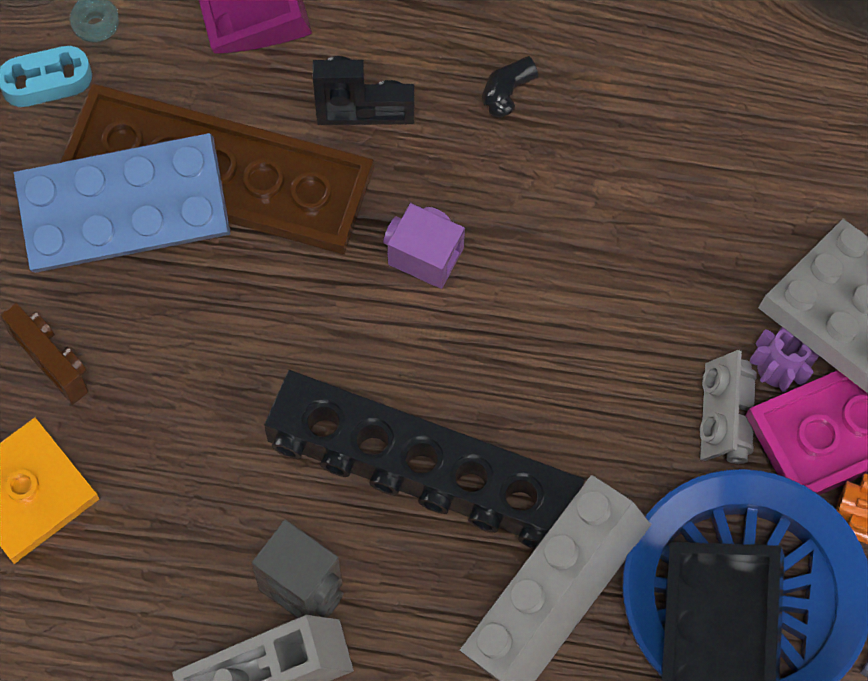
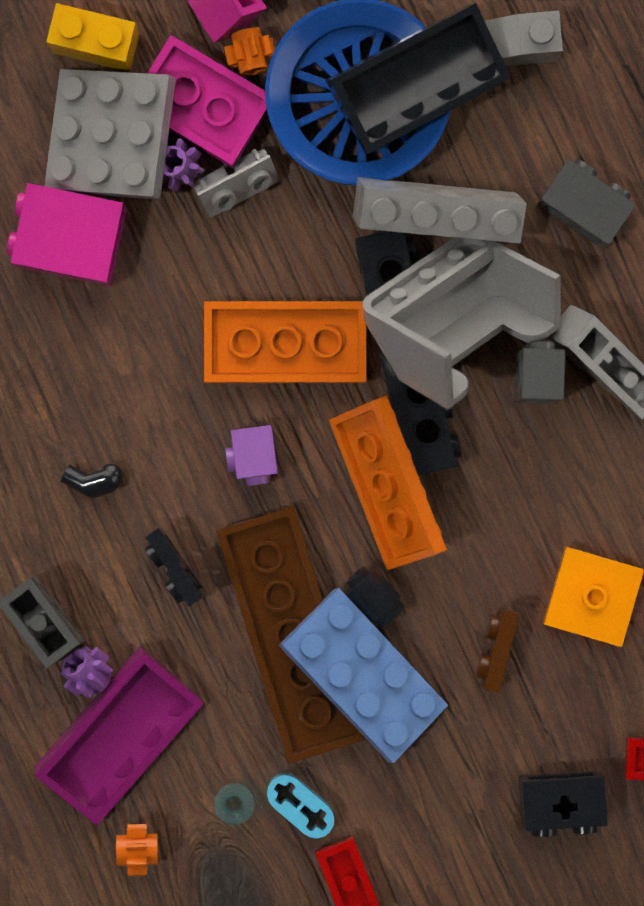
camera: 125 degrees left, 20 degrees up
(193, 268) = (374, 596): none -> black brick
(298, 345) = (387, 483): none -> orange plate
(437, 521) = (454, 306): none -> light grey windscreen
(519, 349) = (284, 342): none -> orange plate
(777, 208) = (67, 234): none -> dark pink brick

